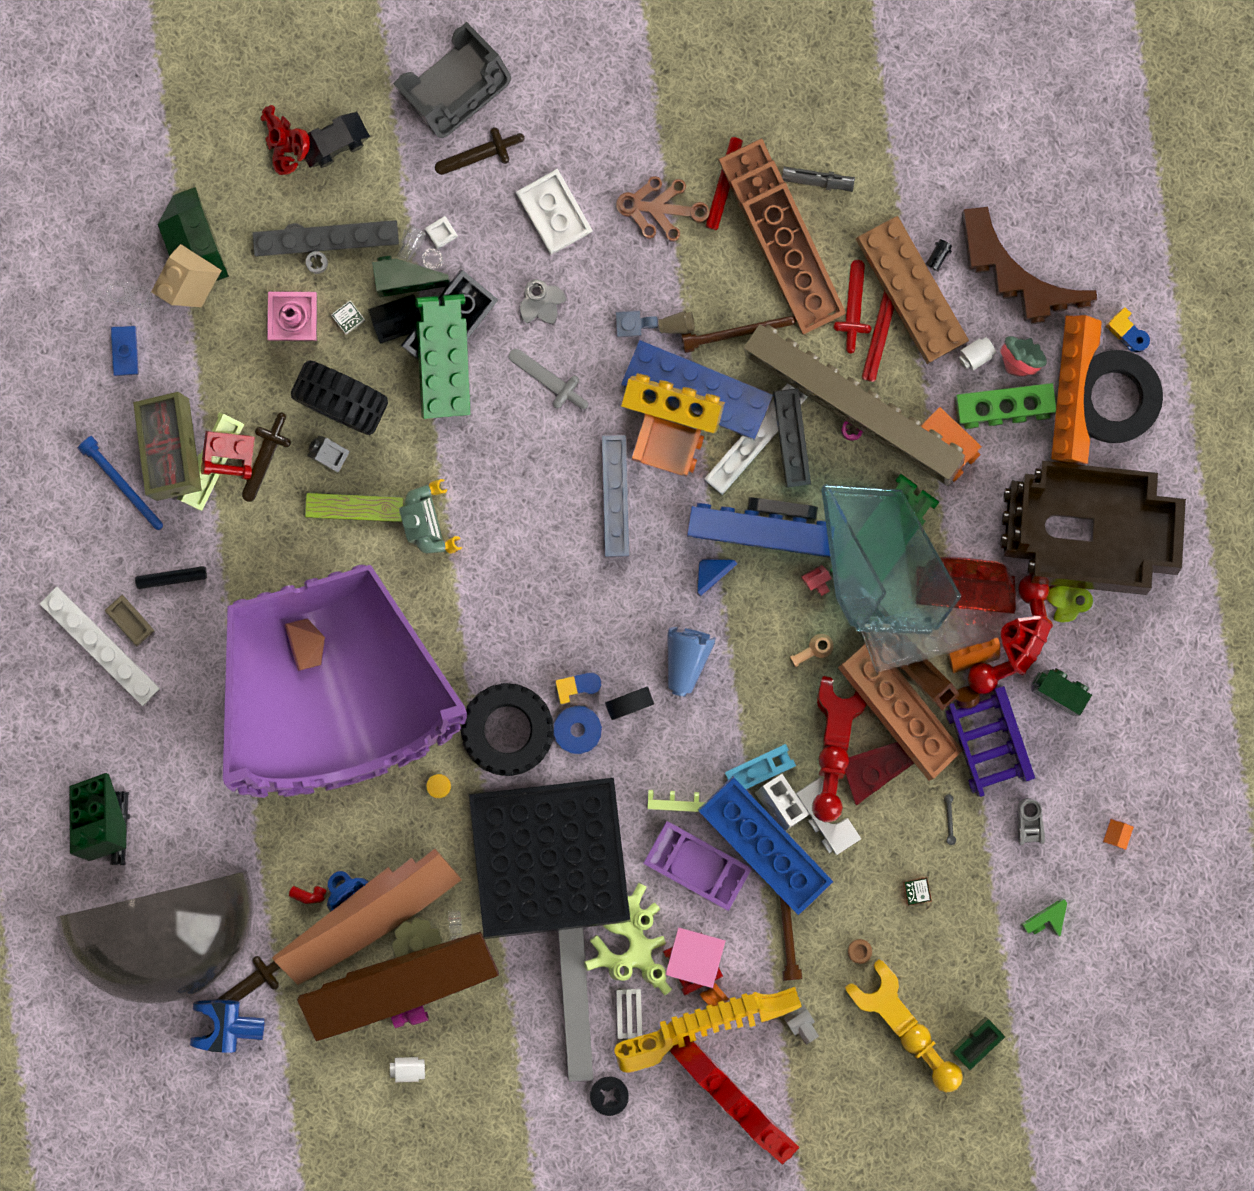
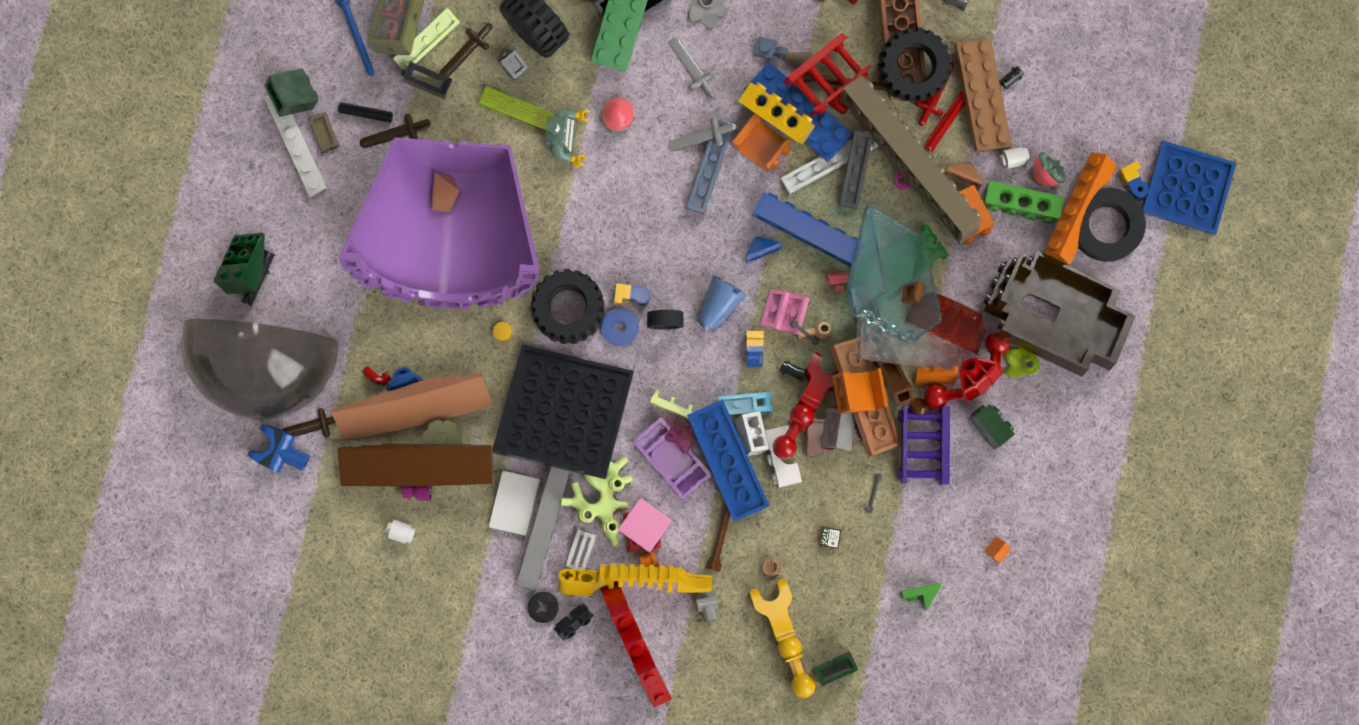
camera: 30 degrees right, 5 degrees down
(73, 588) = (291, 92): none -> dark green brick
(206, 512) = (408, 79): none -> black window
(214, 591) = (396, 132): none -> dark brown sword
(227, 446) = (442, 32): plate -> none
(480, 473) = (617, 115): none -> coral hair
(529, 986) = (514, 503): none -> white tile
(594, 460) = (701, 136): none -> light grey sword
(647, 1110) = (581, 617): none -> black hinge
(694, 334) = (810, 68): none -> red fence
(699, 835) = (682, 435): none -> clear pink panel
(735, 359) = (837, 105): none -> red arm
(748, 698) = (754, 348): none -> leg
(767, 640) = (782, 309): none -> bright pink slope
(785, 654) = (794, 324): none -> dark grey hinge
(787, 508) = (831, 218): black beam -> none
(805, 708) = (792, 370): none -> black pin
(849, 293) = (939, 64): none -> black tyre
(882, 761) = (838, 430): none -> light grey panel
(892, 709) = (860, 391): none -> orange panel
(913, 569) = (912, 293): none -> dark orange tile
(925, 393) = (965, 173): none -> nougat slope
(1010, 278) = (1060, 113): reddish brown arch -> none
(1030, 824) = (933, 517): light grey piece -> none
(1196, 316) = (1188, 187): none -> blue plate

